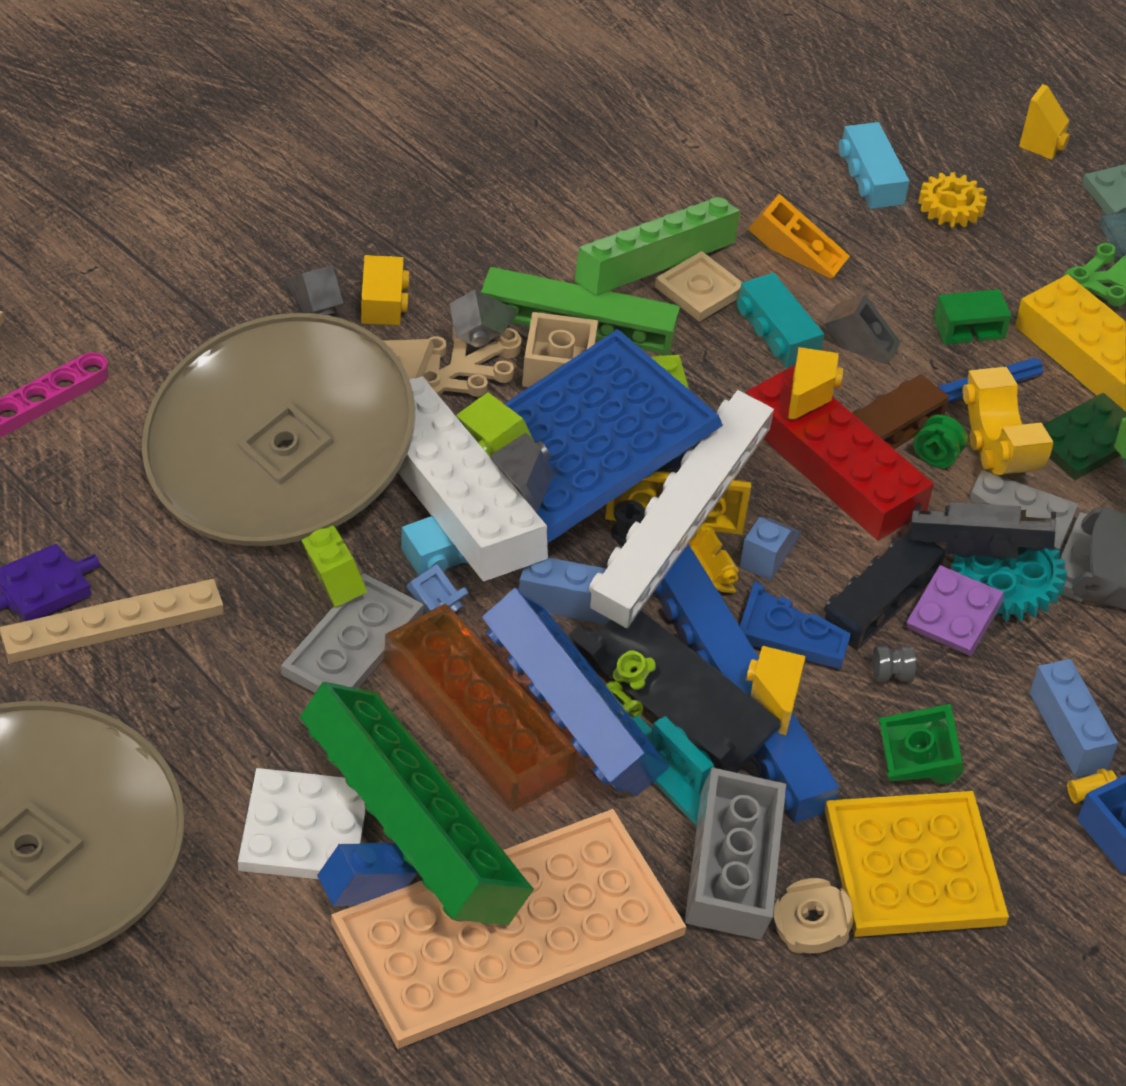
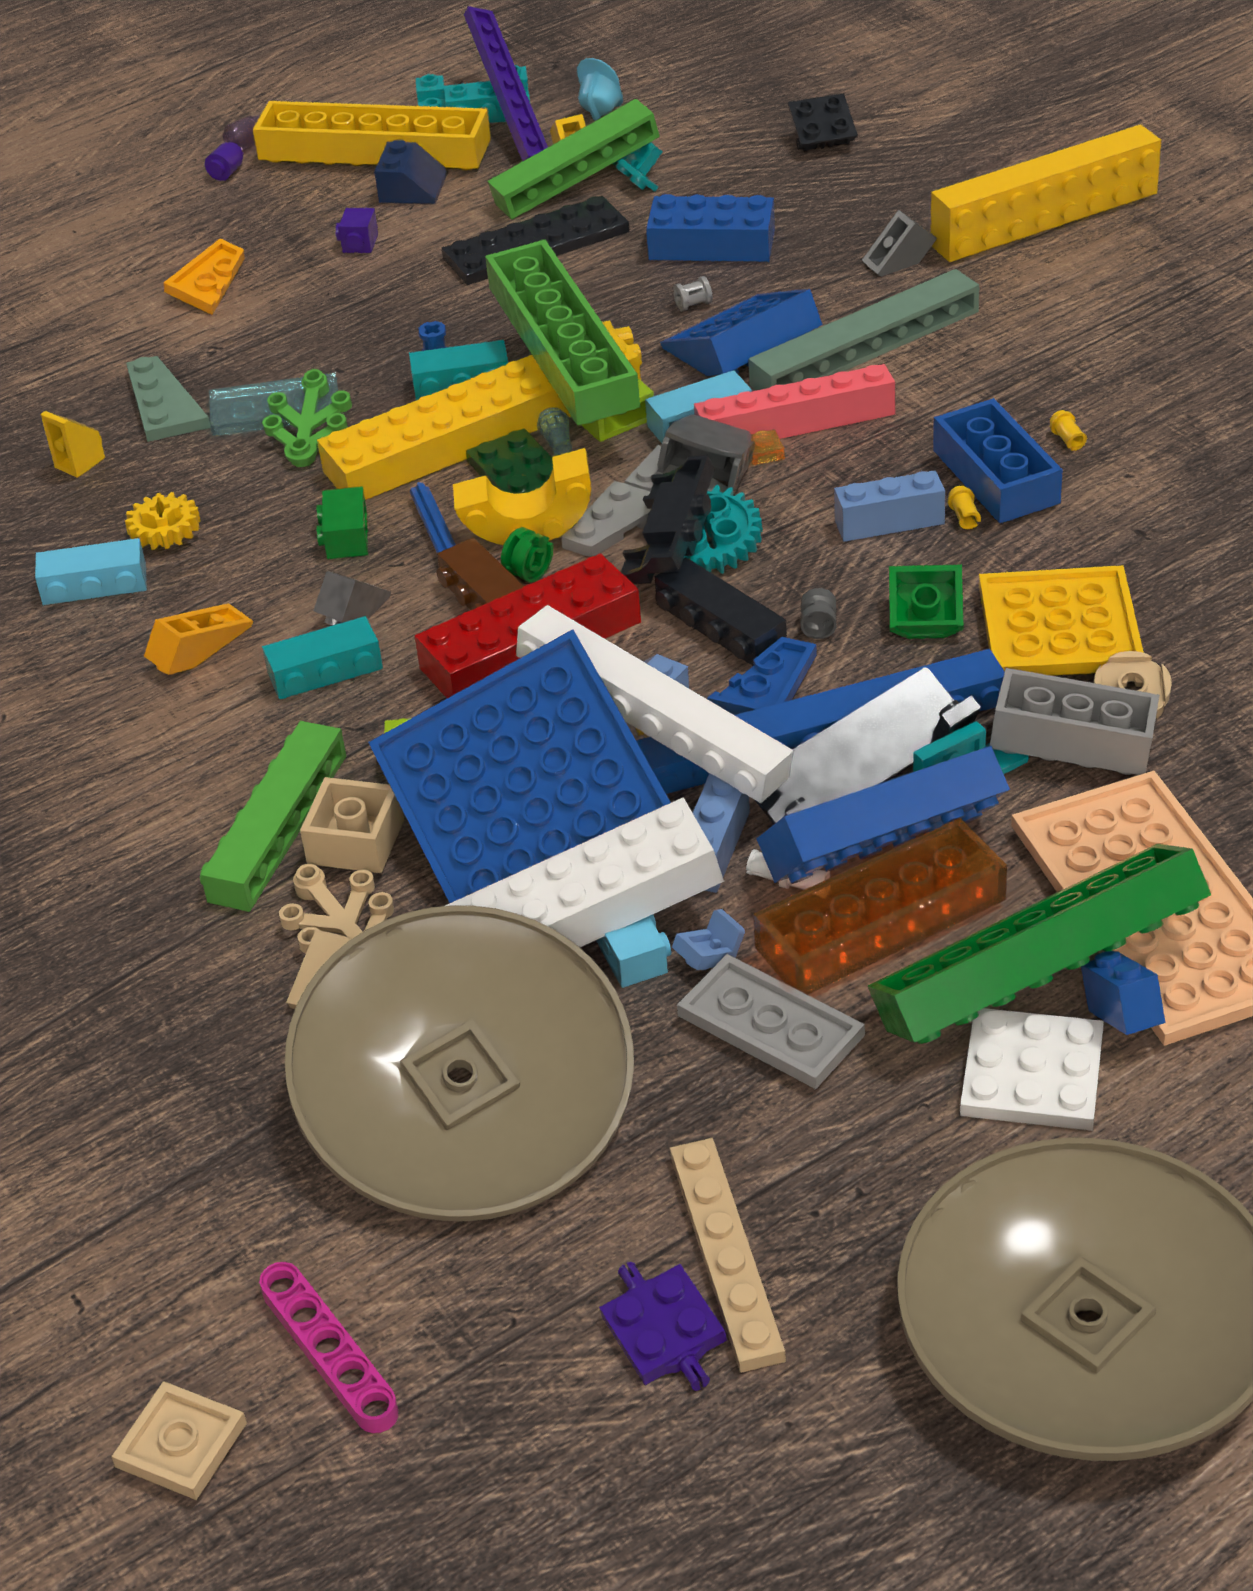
camera: 75 degrees left, 5 degrees down
(316, 290) = (187, 1049): flat silver slope -> none
(334, 565) = (678, 1022): lime piece -> none
(383, 289) = (202, 986): yellow brick -> none
(479, 318) = (297, 883): flat silver slope -> none
(492, 423) = (492, 856): lime piece -> none
(526, 468) = (582, 817): flat silver slope -> none
(629, 661) = (840, 774): lime plate -> none
(656, 245) = (202, 731): bright green brick -> none
(699, 286) = (252, 717): tan plate -> none
(776, 682) = (876, 666): yellow slope -> none
(813, 380) = (464, 610): yellow slope -> none
(955, 610) = (755, 563): medium lavender plate -> none

